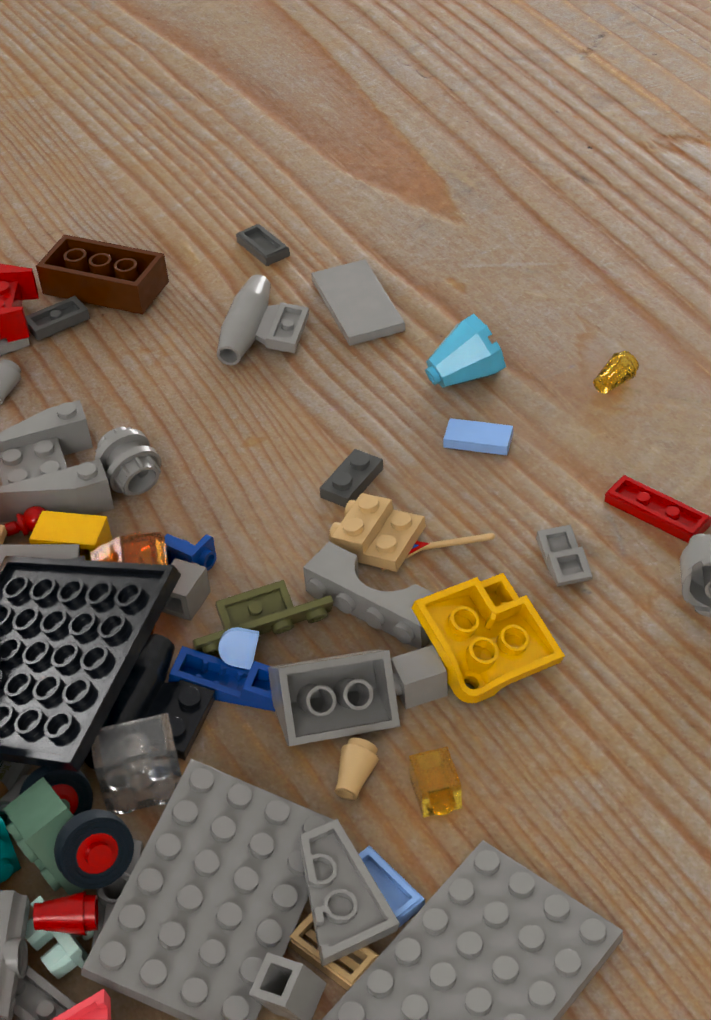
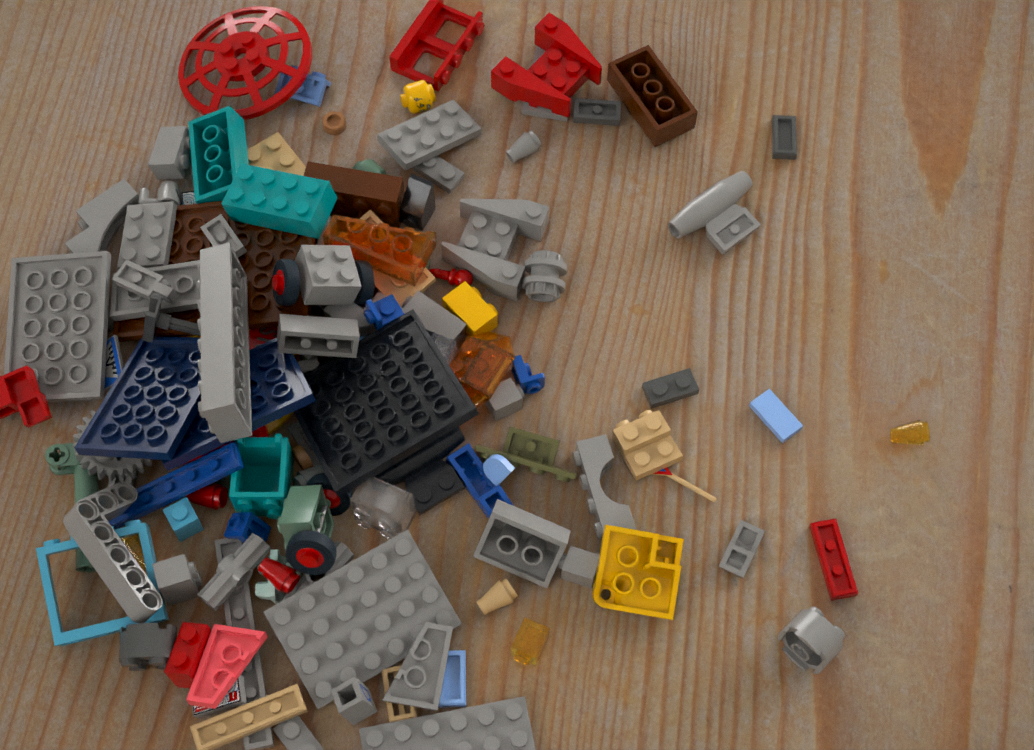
camera: 35 degrees right, 20 degrees up
(358, 302) = (801, 239): light grey tile -> none
(465, 355) = (819, 346): medium azure cone -> none

